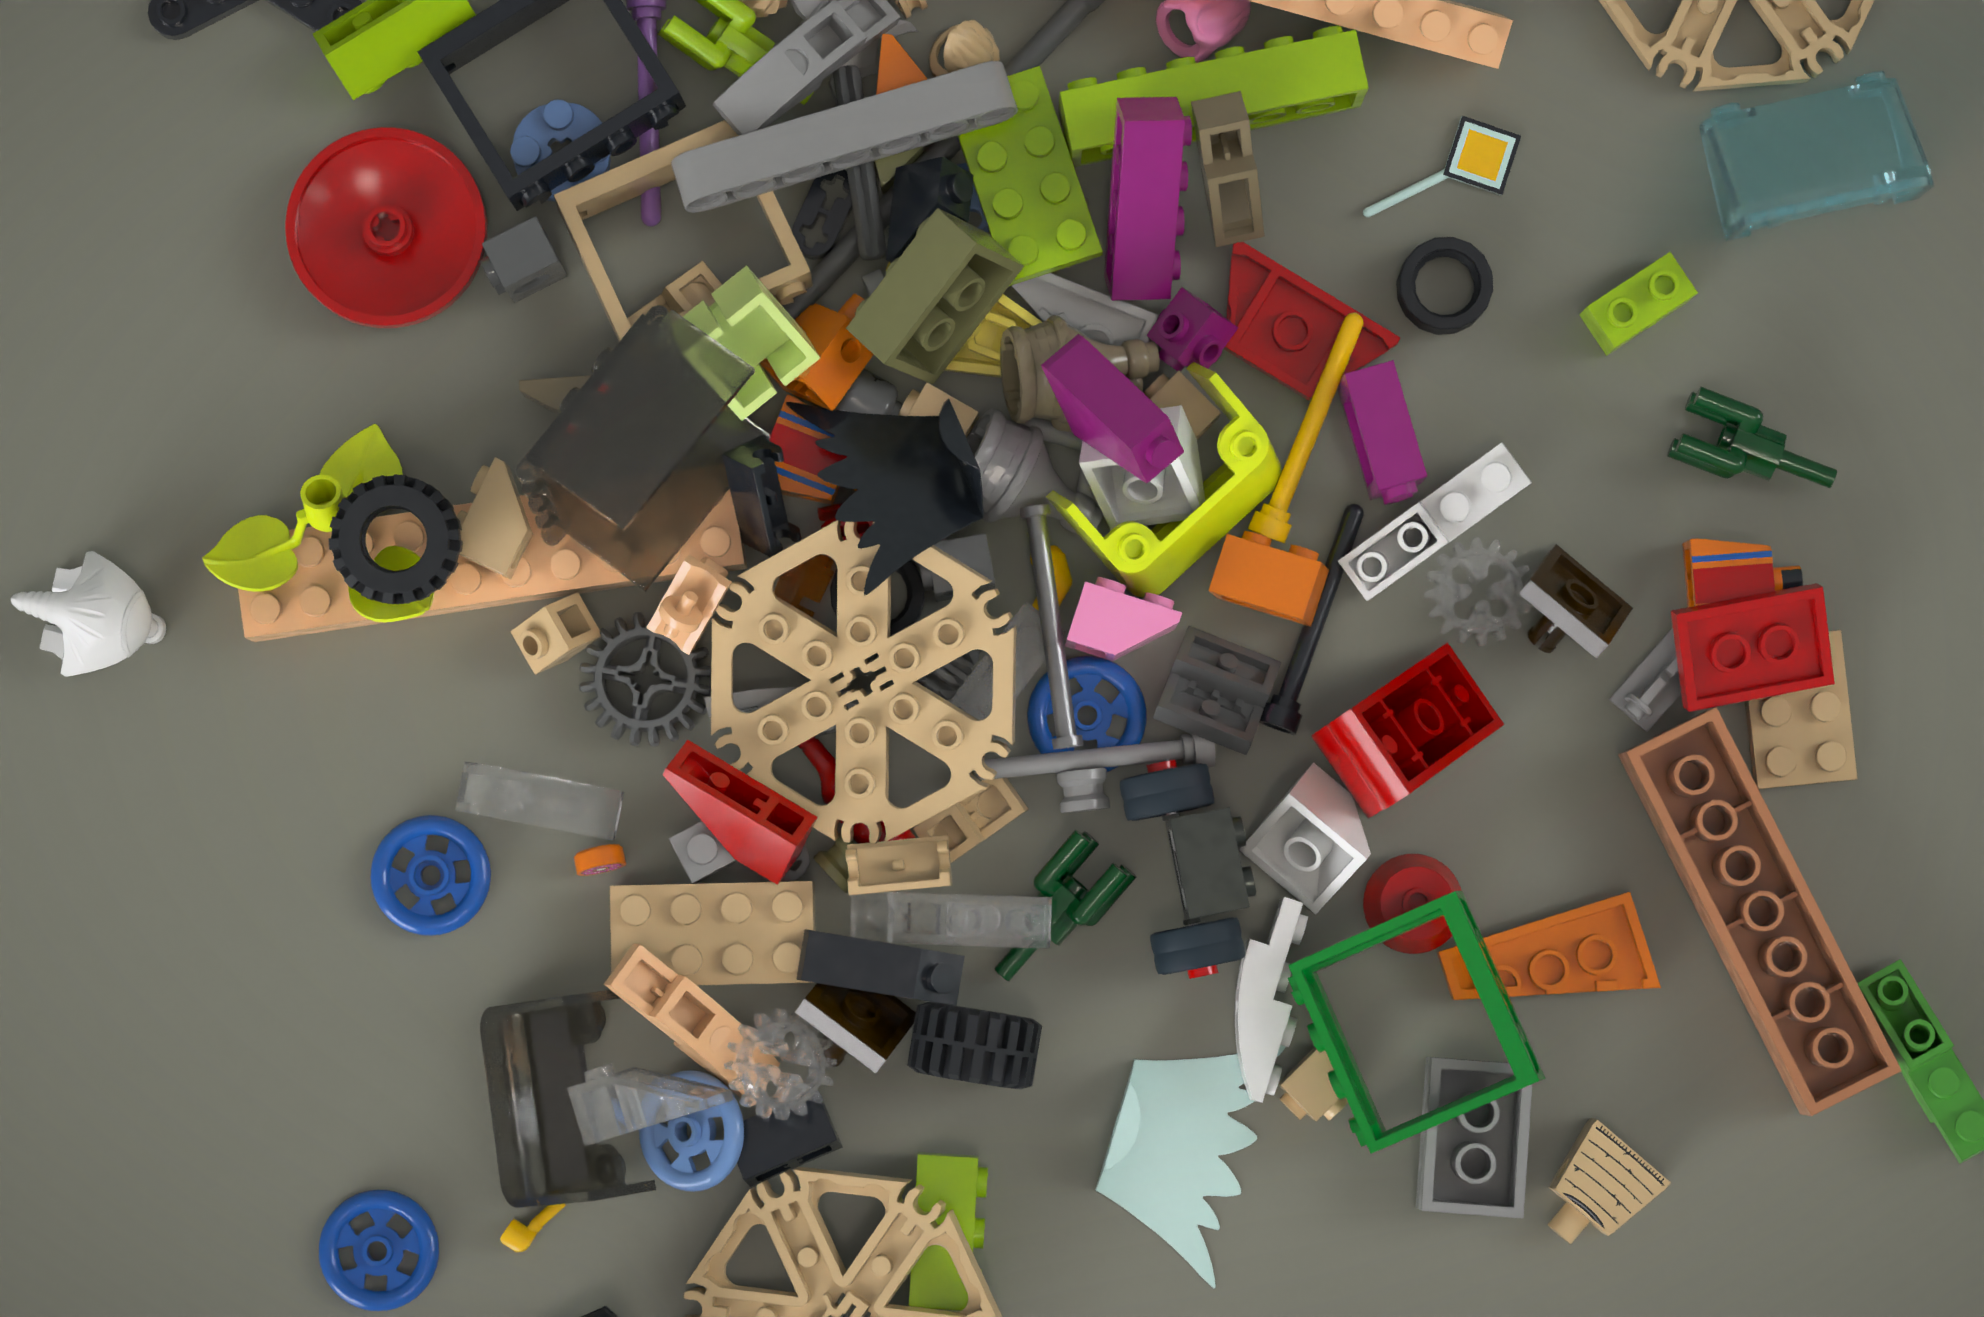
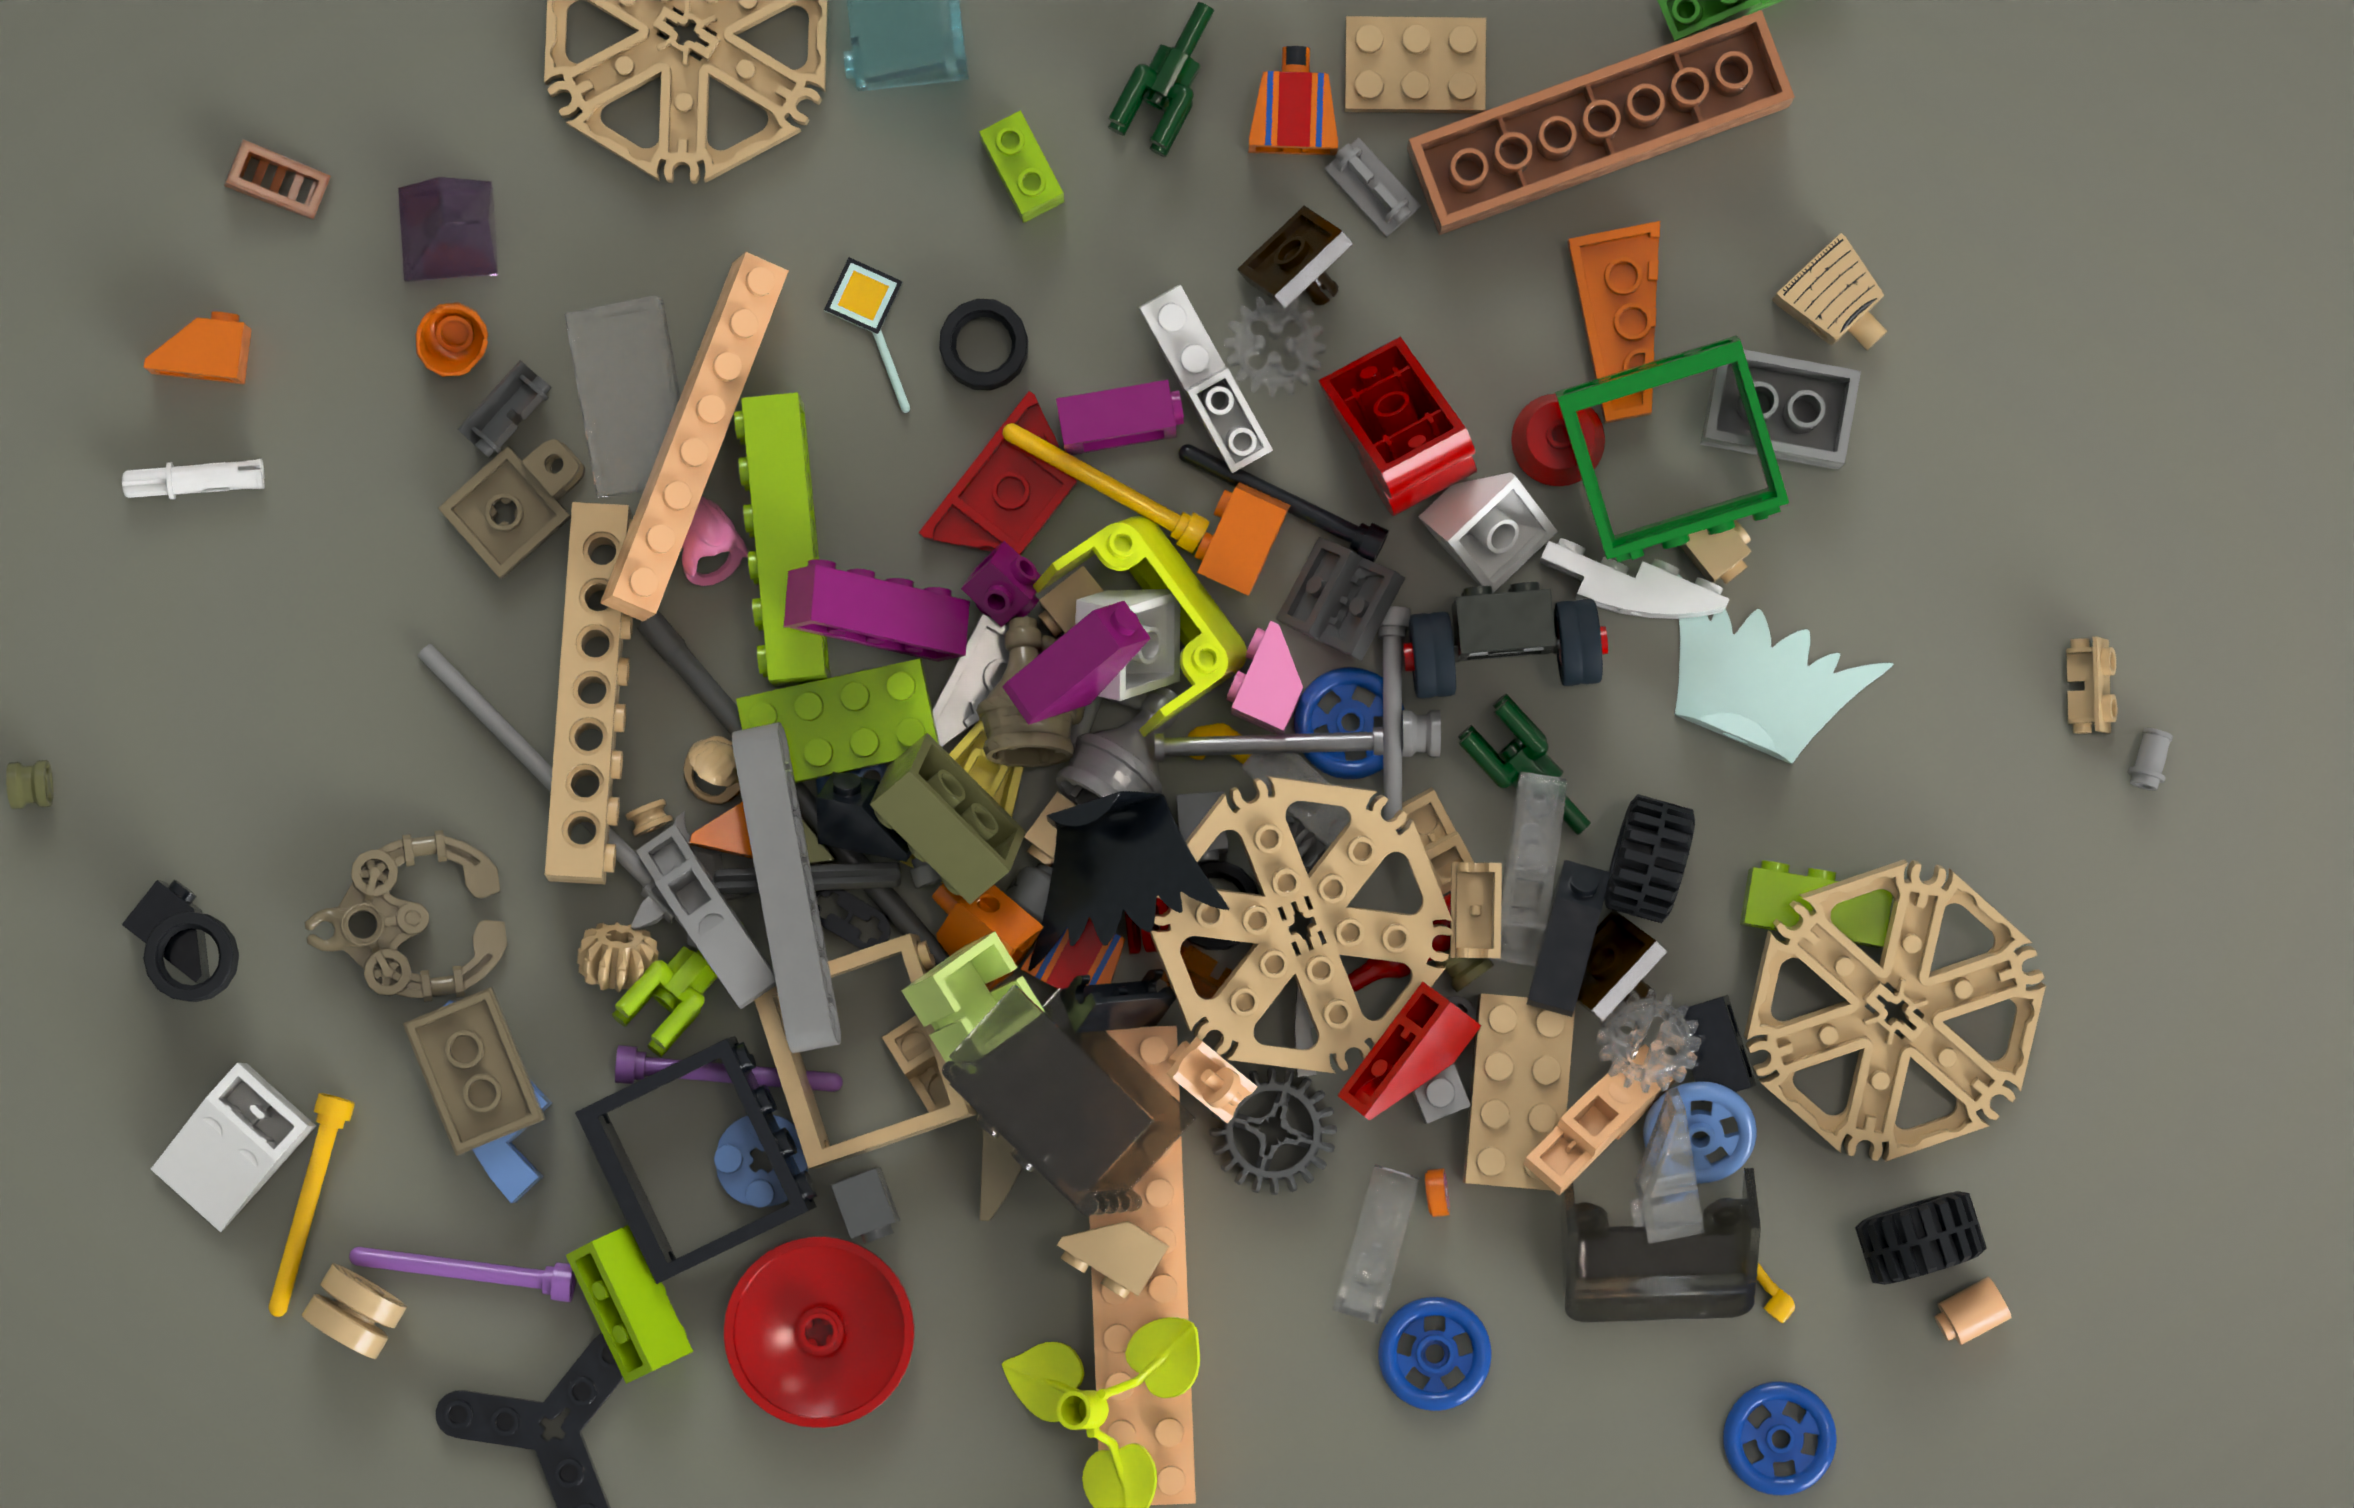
camera: 80 degrees left, 0 degrees up
(350, 531) = (1170, 1343): black tyre -> none
(556, 633) = (1221, 1210): tan brick -> none
(1228, 168) = (857, 531): dark tan slope -> none
(1752, 647) = (1356, 99): red plate -> none

